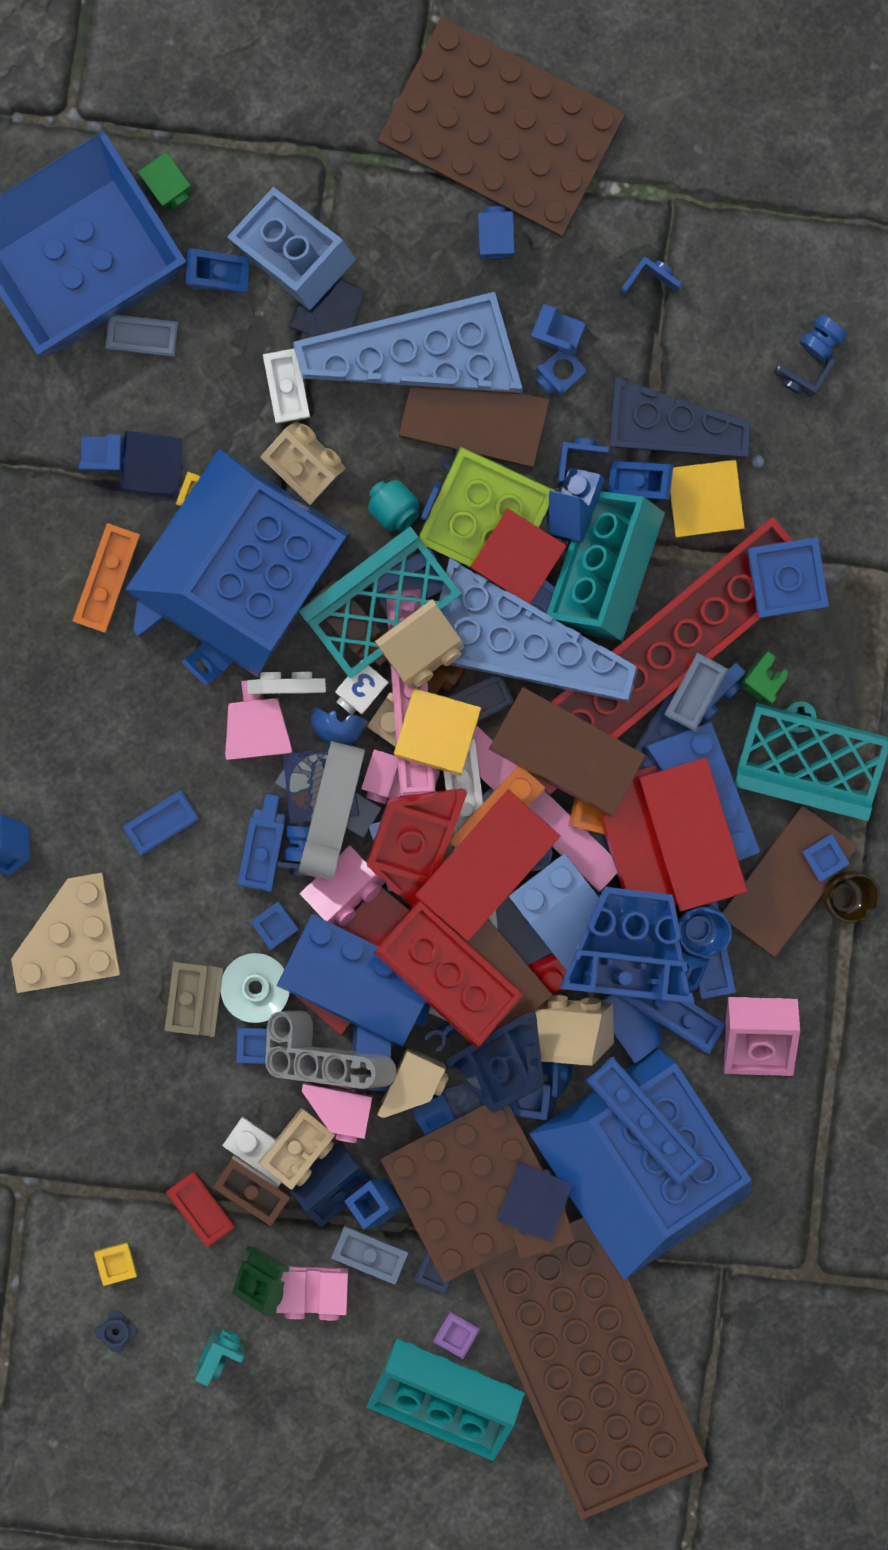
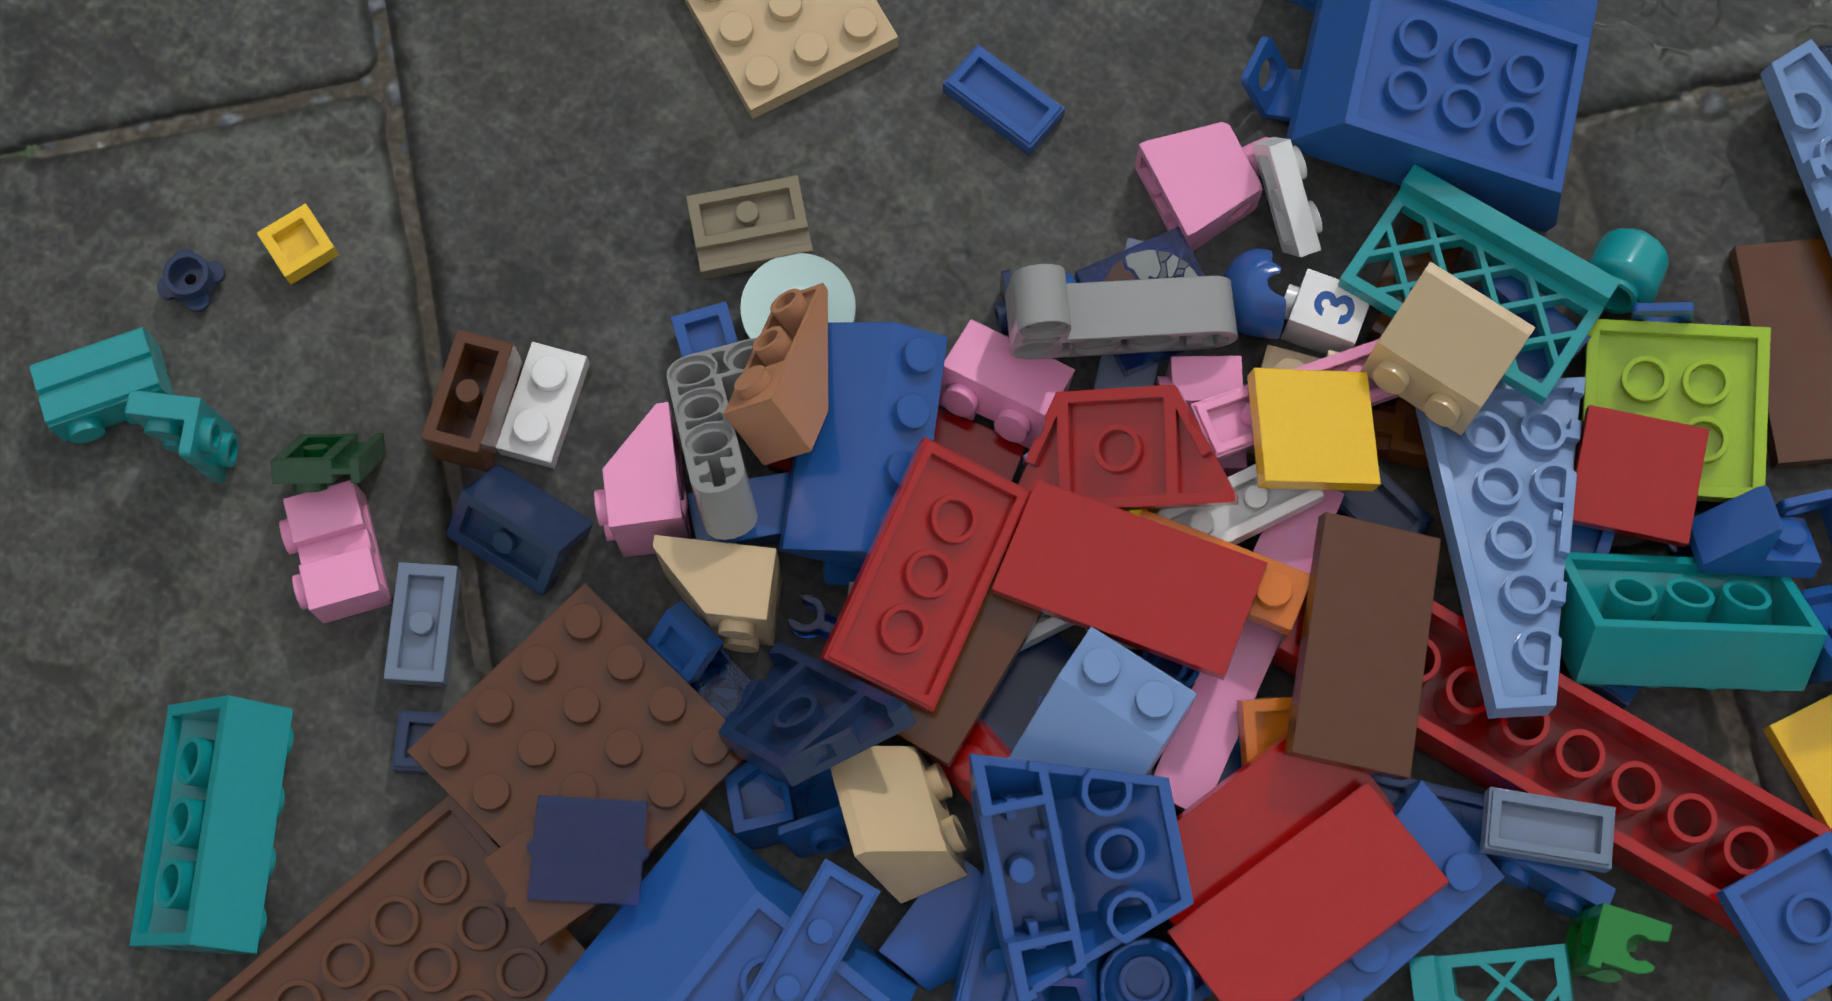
camera: 70 degrees right, 15 degrees down
(168, 1397) = (92, 384): none -> teal brick
(200, 1209) = (420, 345): red tile -> none
(262, 845) = (988, 249): blue hinge -> none
(274, 925) = (906, 302): blue plate -> none
(286, 386) = (1729, 62): white plate -> none
(297, 1149) = (556, 446): tan bracket -> none
(303, 461) = (1632, 121): tan bracket -> none
(308, 1013) = (785, 383): none -> nougat slope
(374, 1203) = (507, 596): blue brick -> none
(456, 1334) = (329, 811): medium lavender tile -> none

